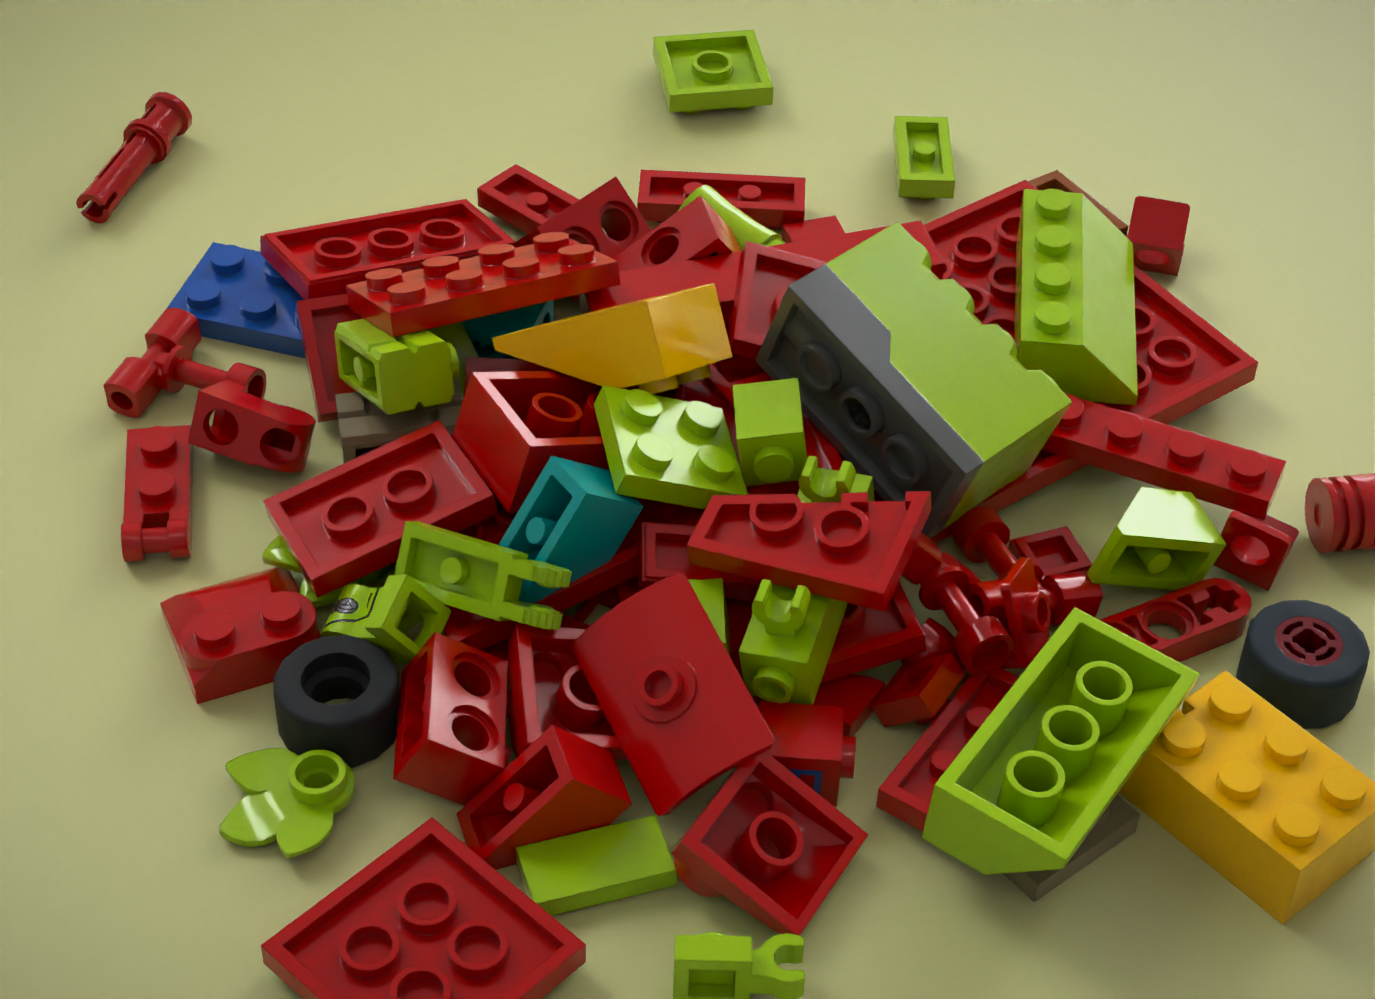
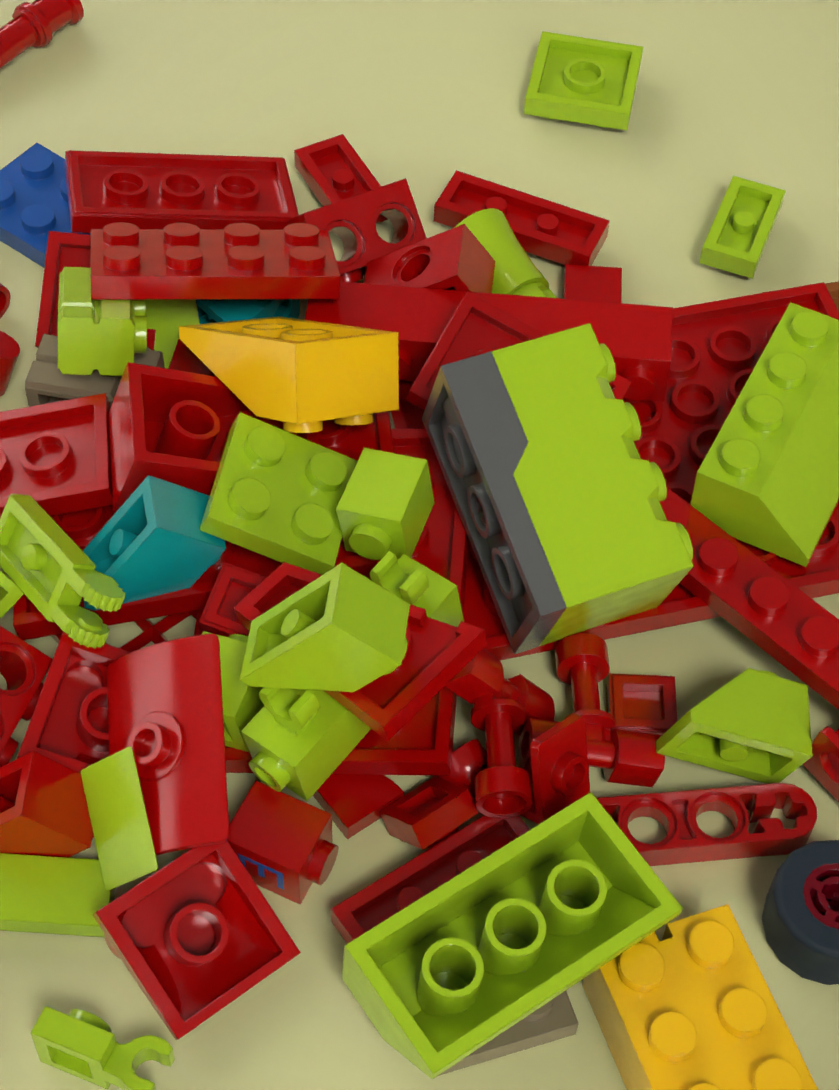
camera: 20 degrees right, 10 degrees up
(654, 765) = (119, 819): none -> lime sticker
(802, 528) = (328, 636): none -> lime slope

